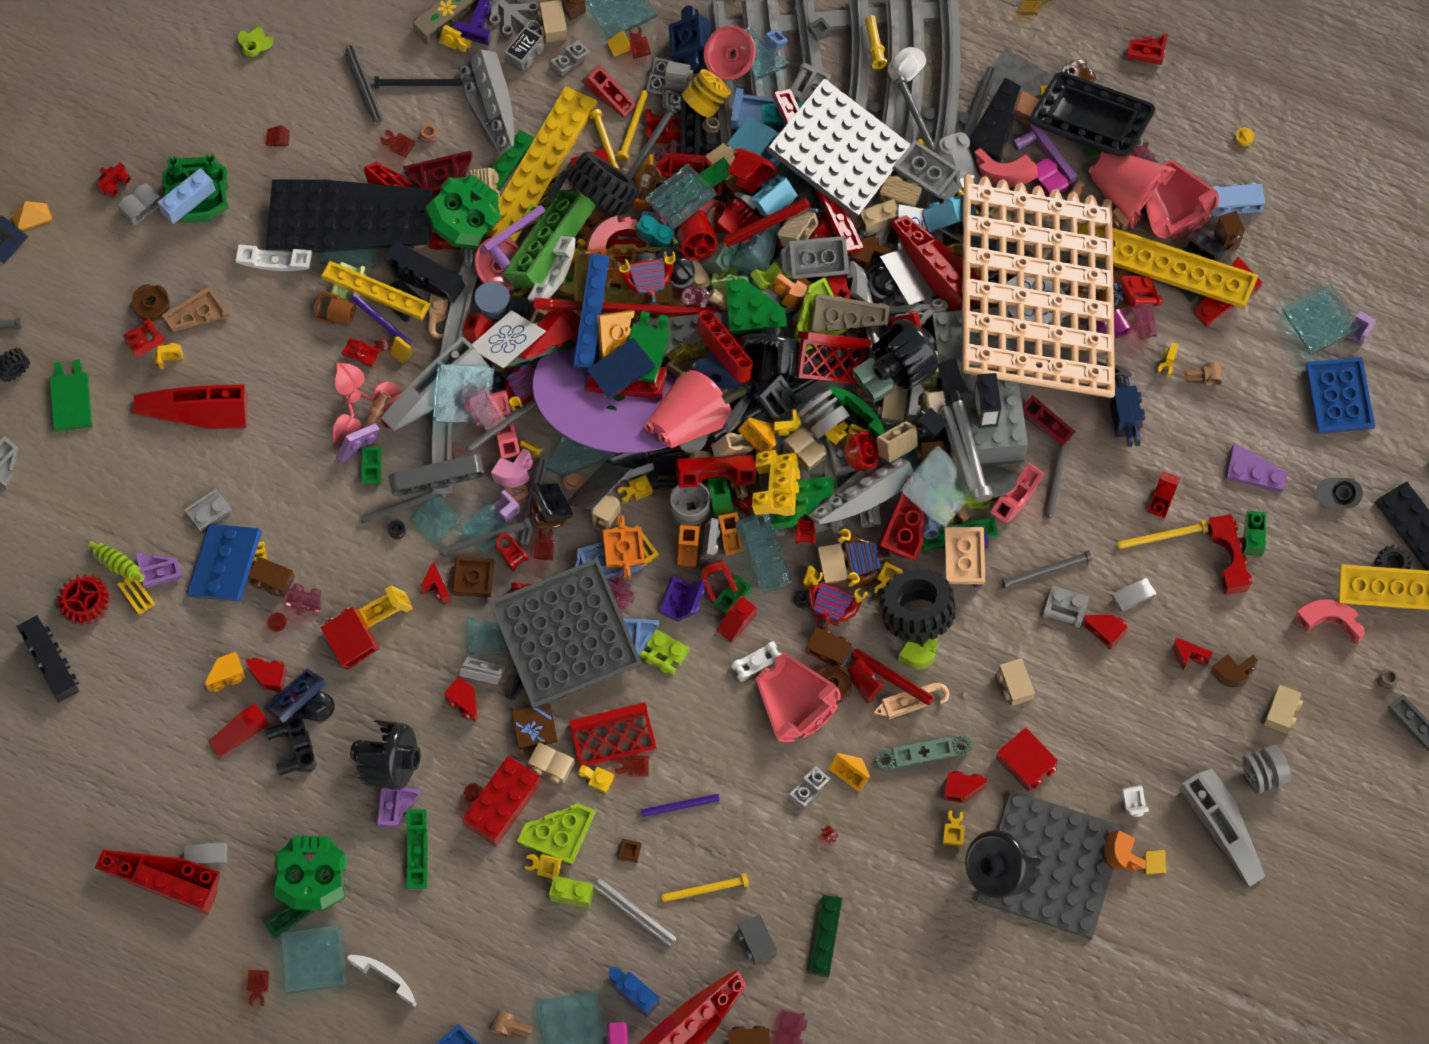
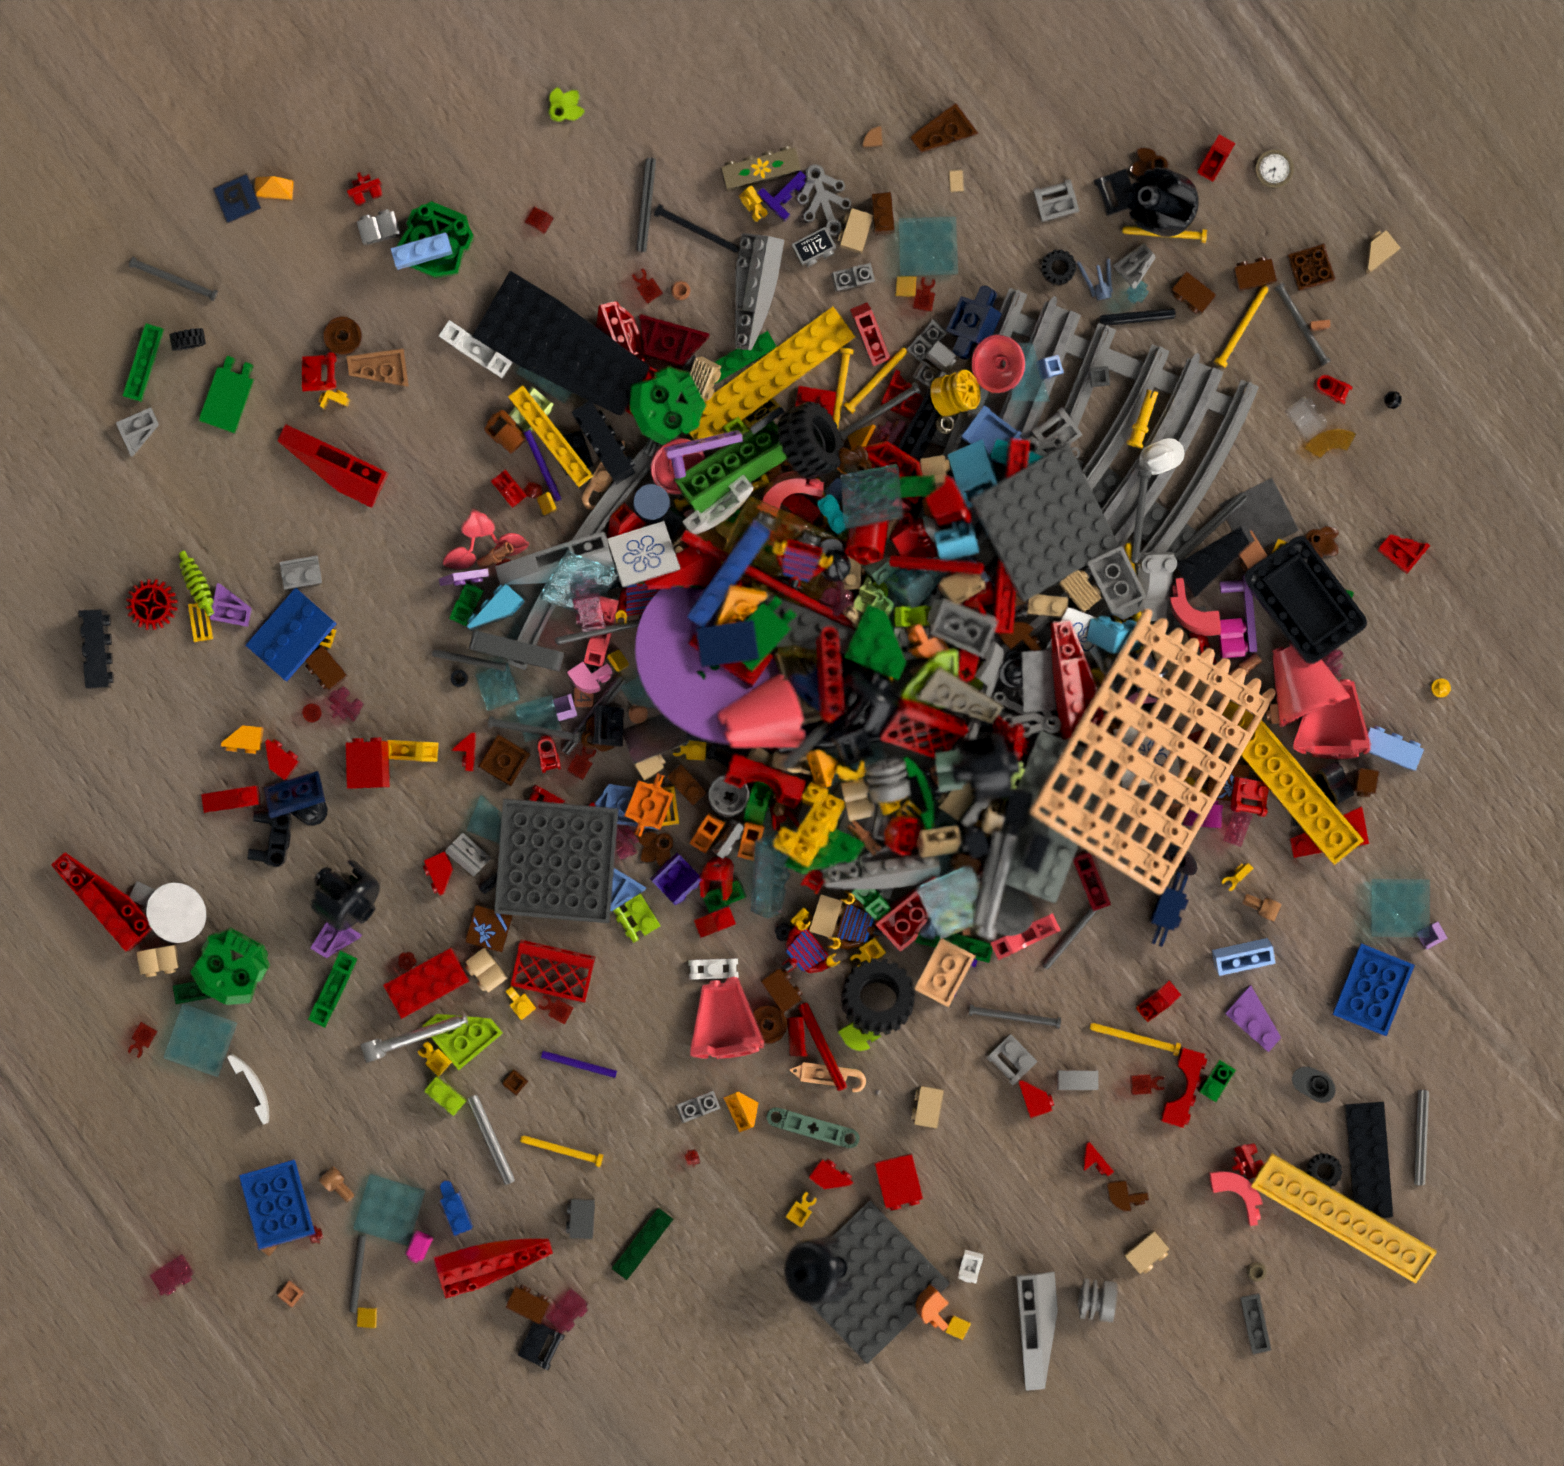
camera: 30 degrees right, 20 degrees up
(235, 853) = (176, 912): none -> sticker
(238, 906) = (158, 959): none -> tan brick
(401, 450) = (501, 606): none -> medium azure slope
(484, 884) = (377, 1048): none -> flat silver piece
(648, 517) = (687, 785): none -> reddish brown brick
(649, 588) = (653, 848): none -> reddish brown plate
(839, 477) = (864, 836): none -> nougat pin
(865, 528) = (872, 902): none -> green slope
(1193, 570) = (1143, 1083): none -> clear red plate
(1214, 420) = (1243, 956): none -> light blue brick
(1320, 587) = (1245, 1162): none -> red hips

